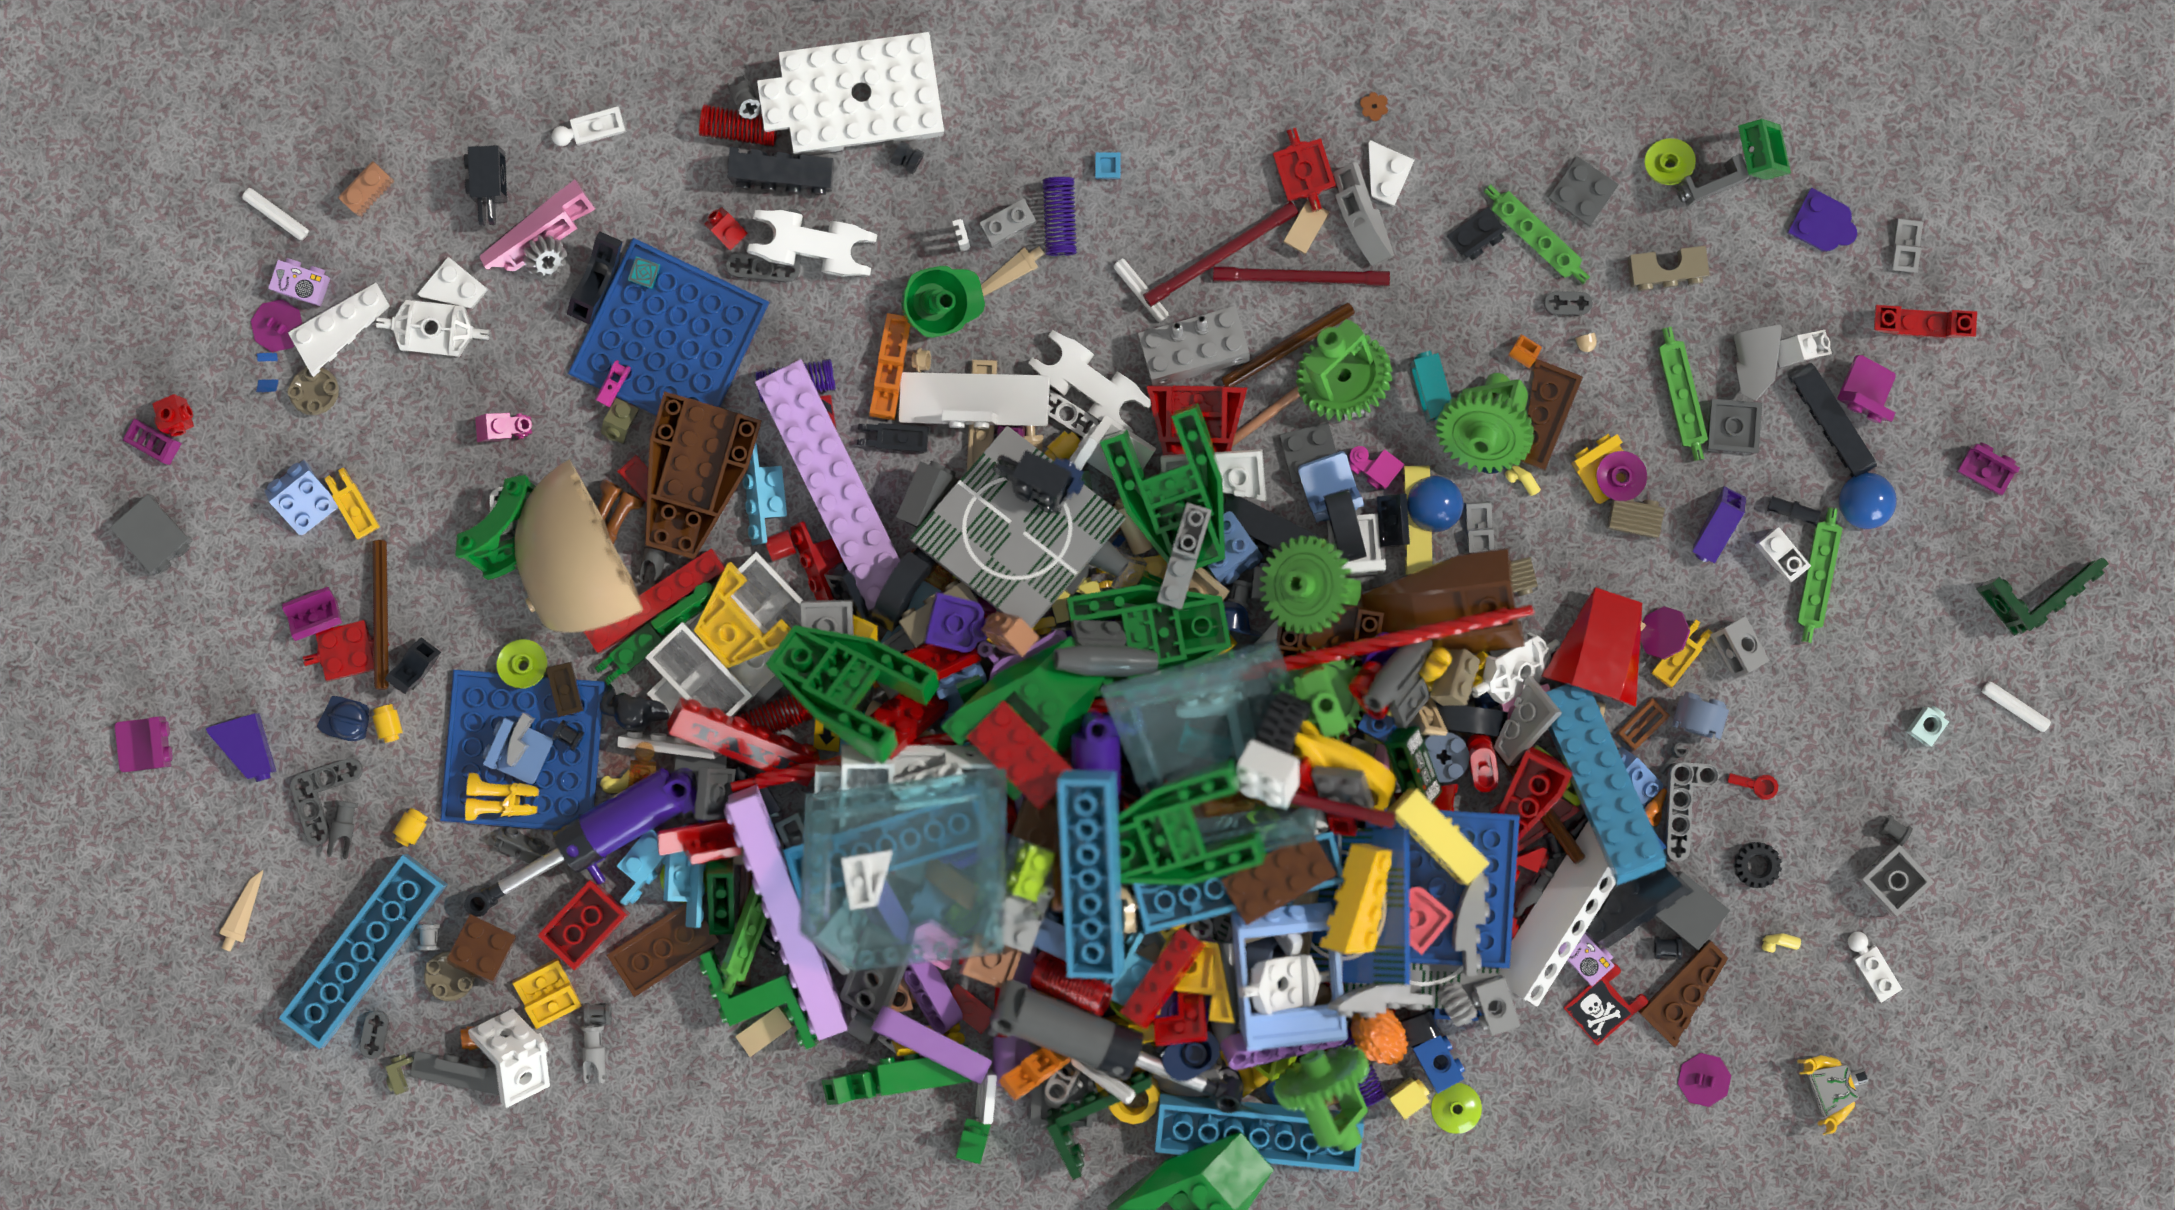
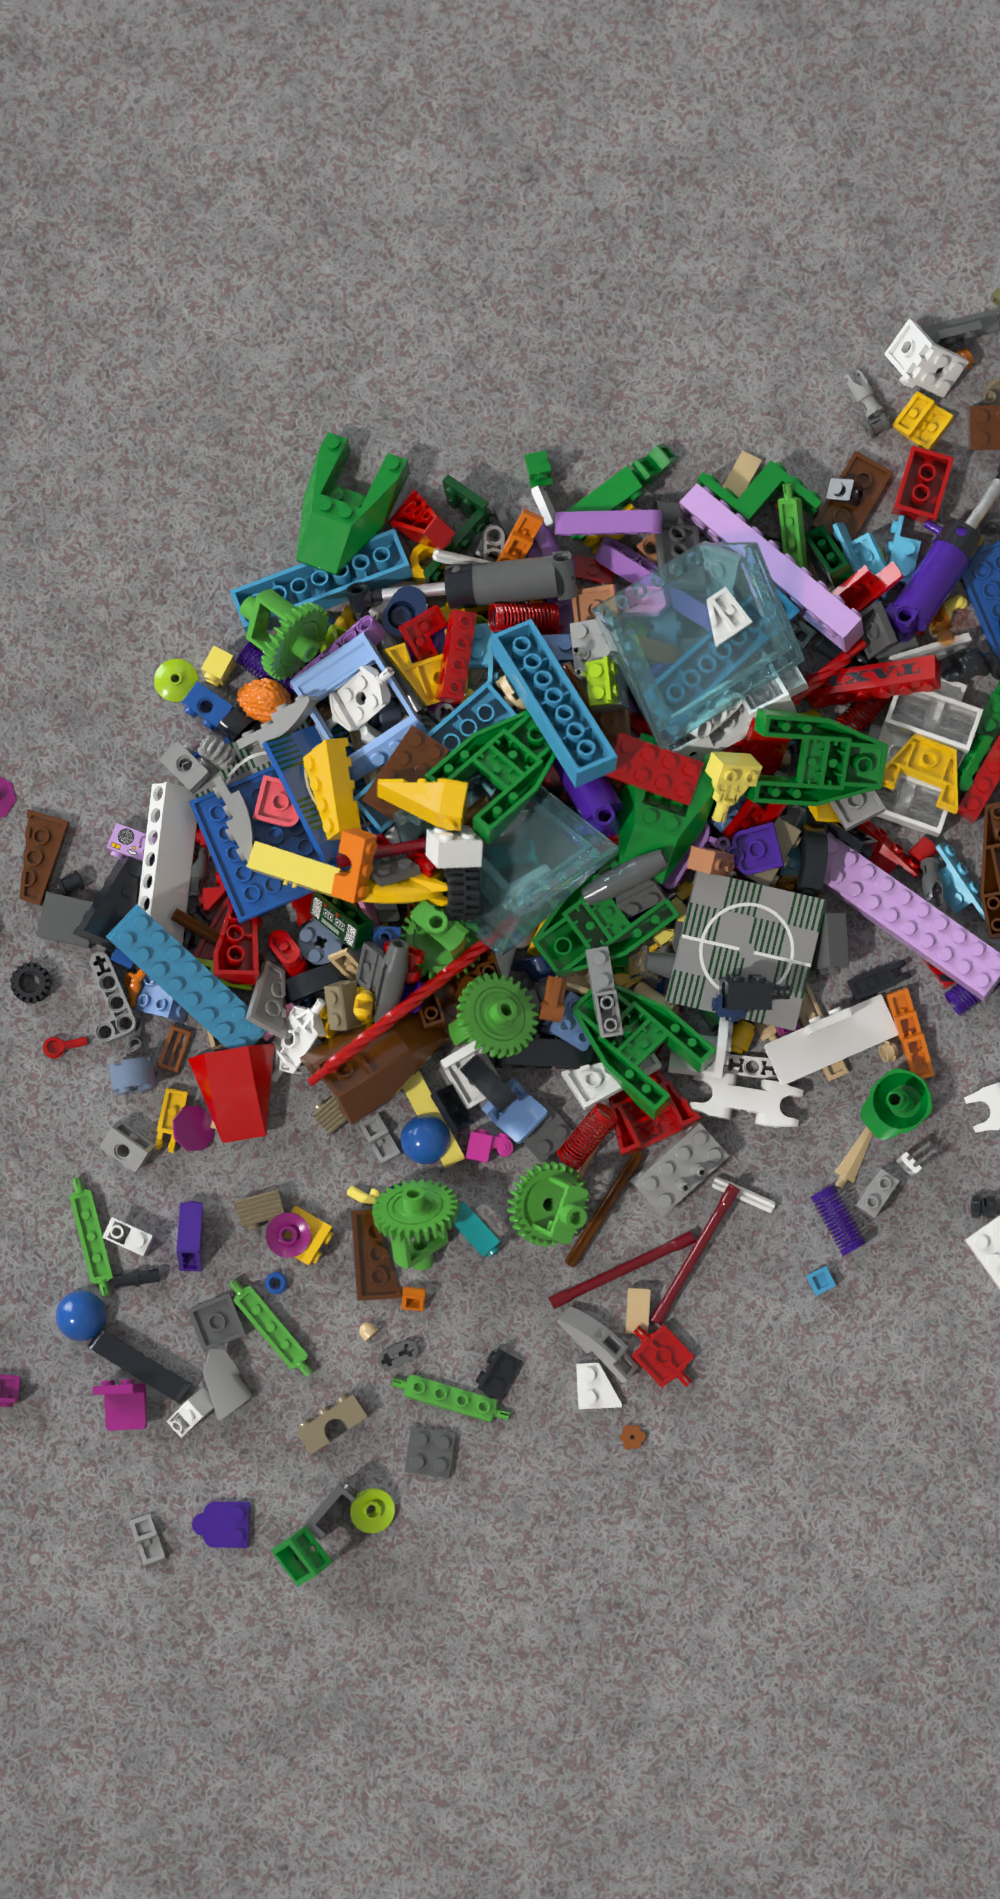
camera: 155 degrees right, 5 degrees down
(668, 957) = (845, 491): none -> bracket
(789, 507) = (932, 880): none -> dark grey piece
(947, 706) = (730, 779): none -> light yellow brick
(1122, 1143) = (421, 522): none -> red wedge
(1242, 570) = (552, 1004): none -> dark orange piece
(1253, 431) = (600, 1119): none -> red piece
(1262, 824) = (437, 802): none -> yellow wedge
(1367, 819) = (360, 849): none -> orange arch
(1602, 1009) = (99, 812): flag -> none
(1655, 428) = (276, 1275): none -> blue plate
(1925, 323) = (104, 1482): red slope -> none

